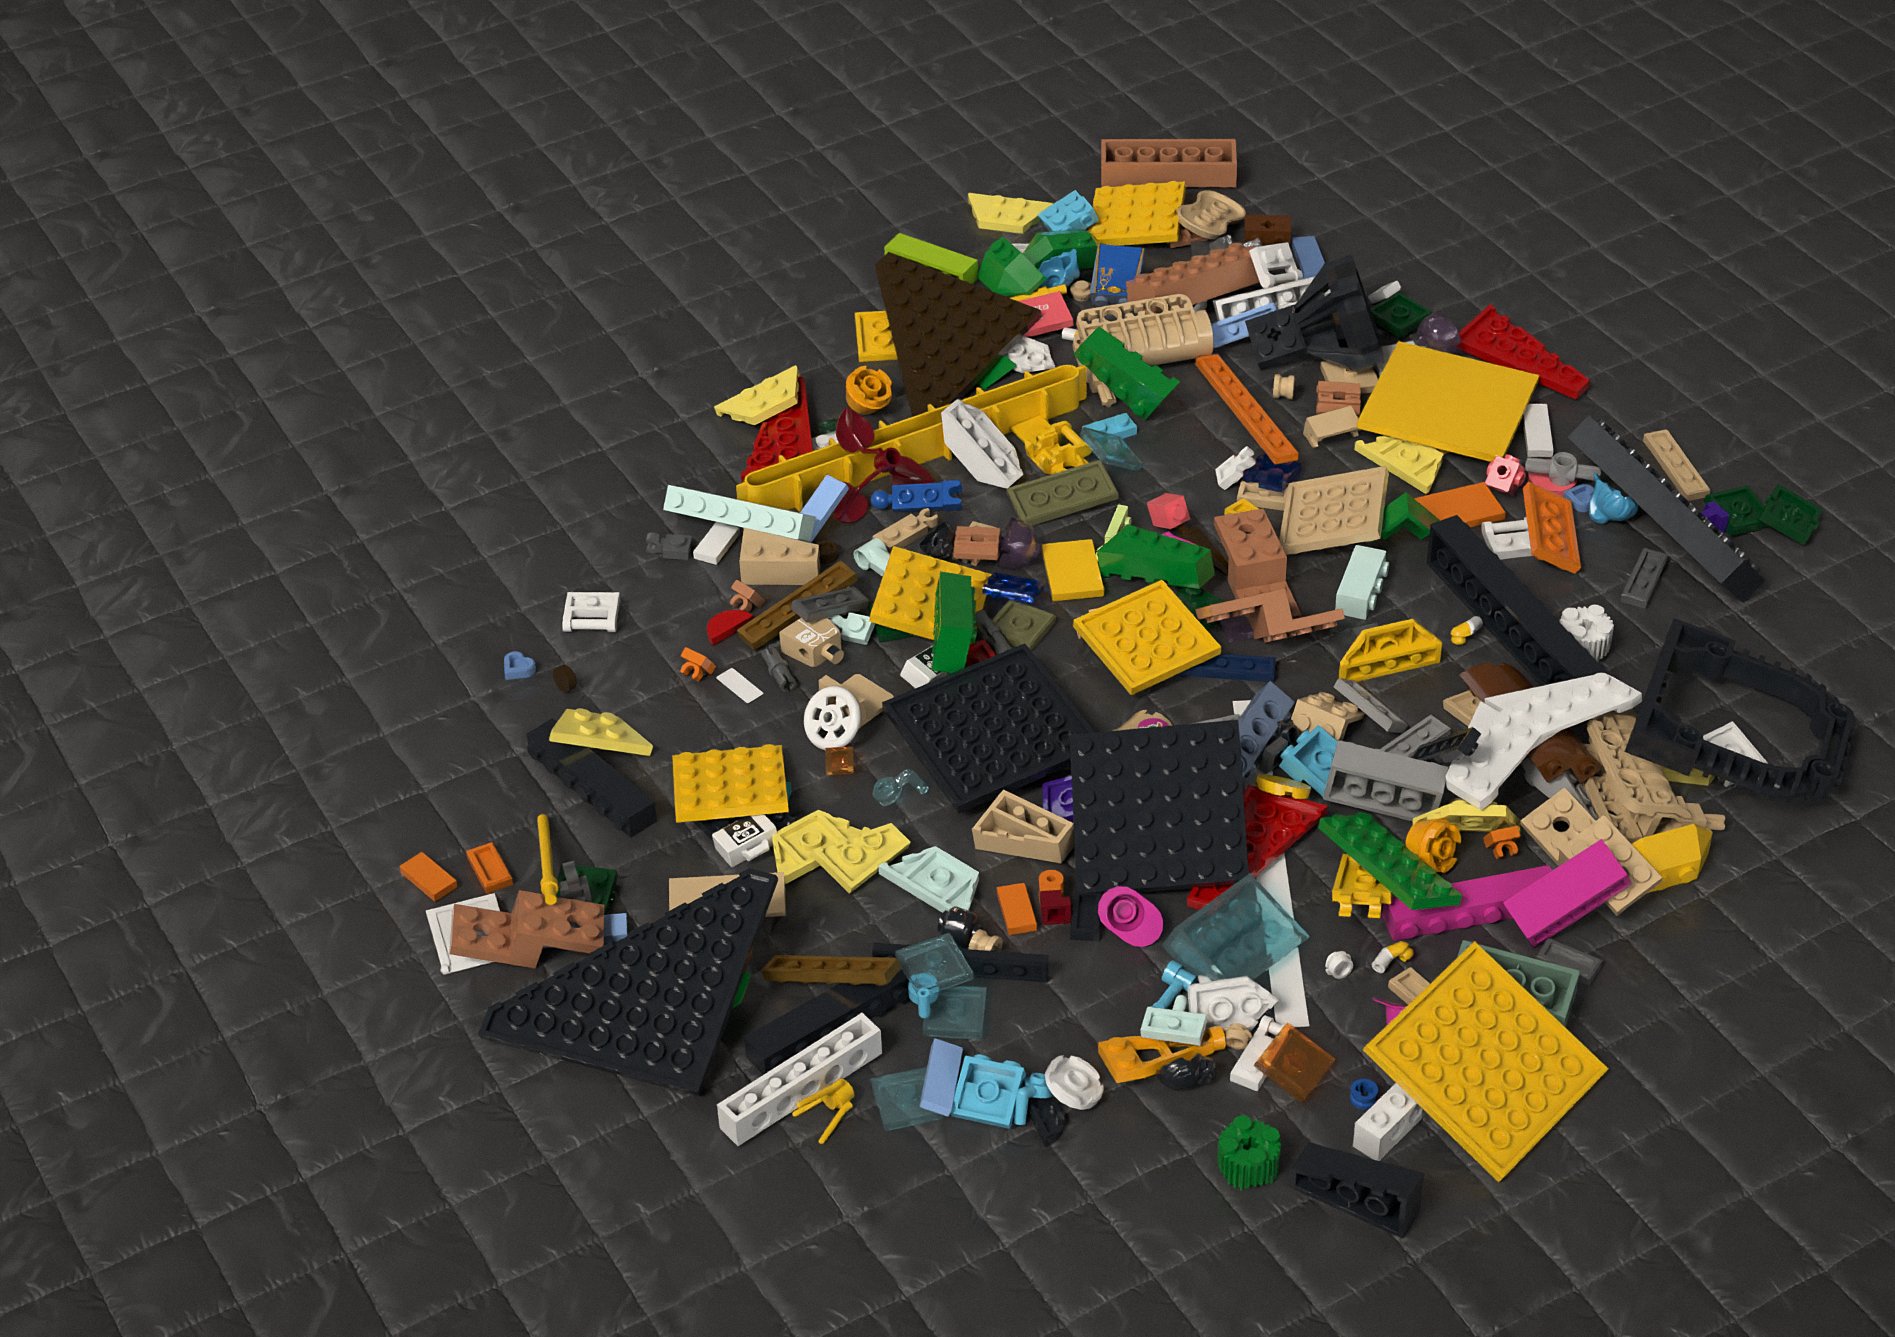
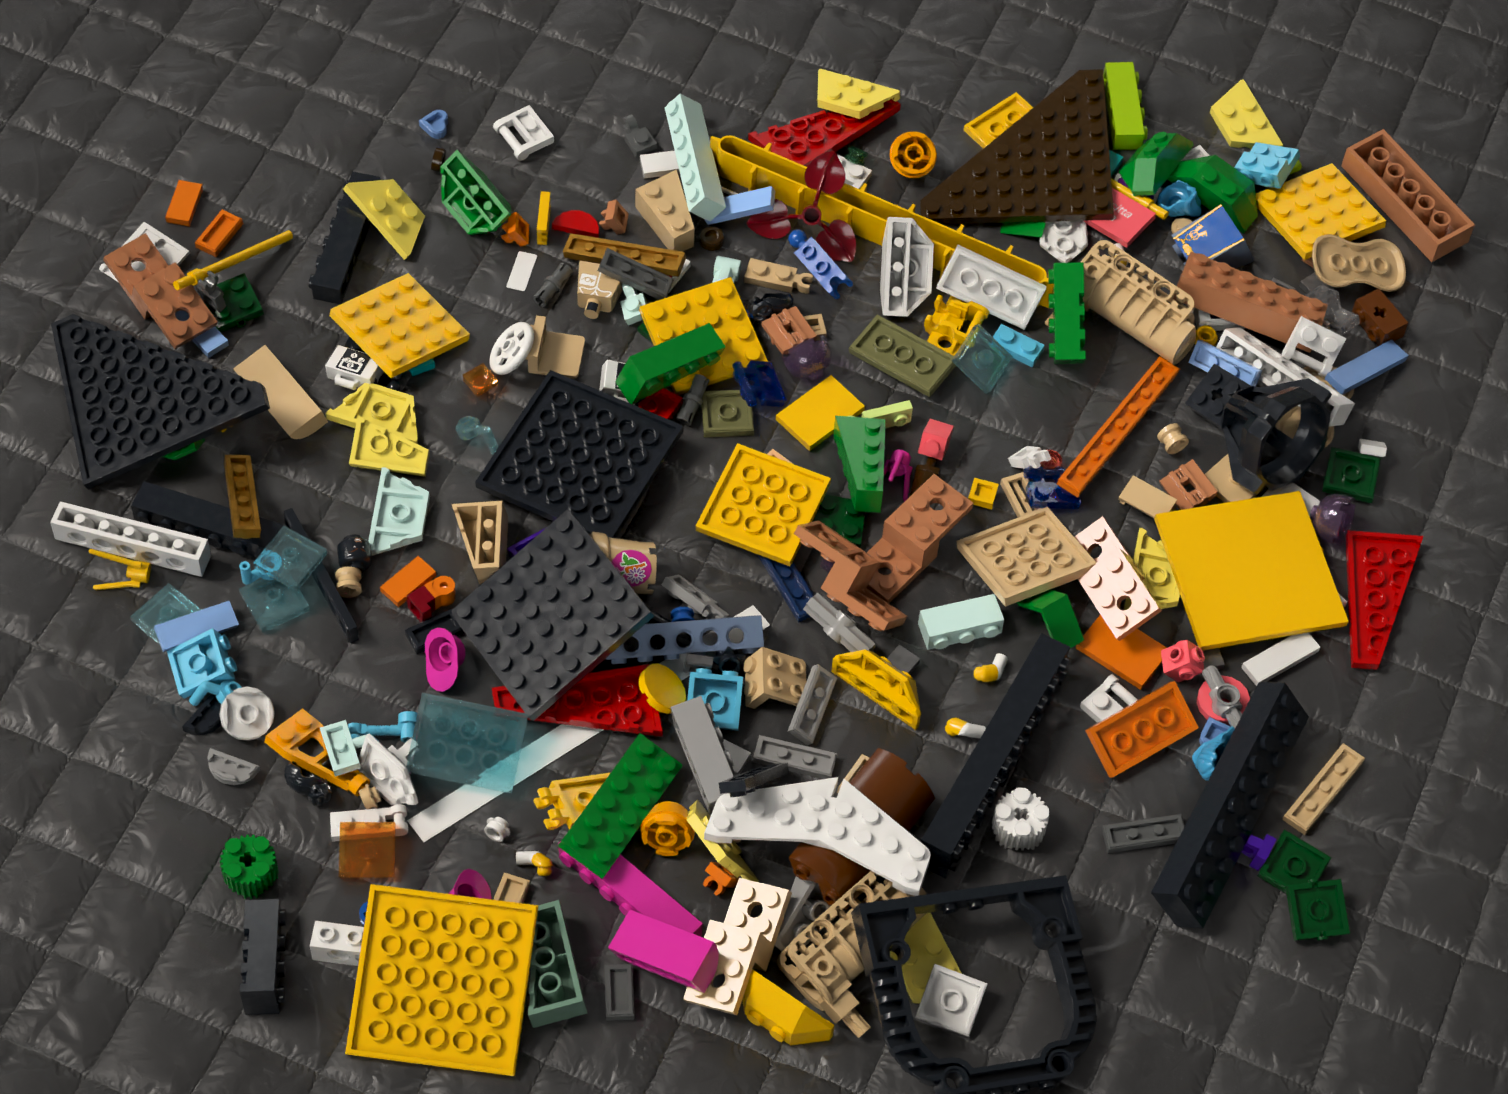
camera: 50 degrees right, 15 degrees up
(637, 671) = (472, 196): none -> green wedge
(702, 639) = (543, 218): none -> yellow tile
(1052, 401) = (992, 286): none -> white tile
(1122, 1125) = (230, 769): none -> light grey plate
(1307, 651) = (838, 624): none -> light grey piece
(1409, 467) = (1114, 579): none -> bracket
(1422, 588) = (992, 671): none -> yellow arm

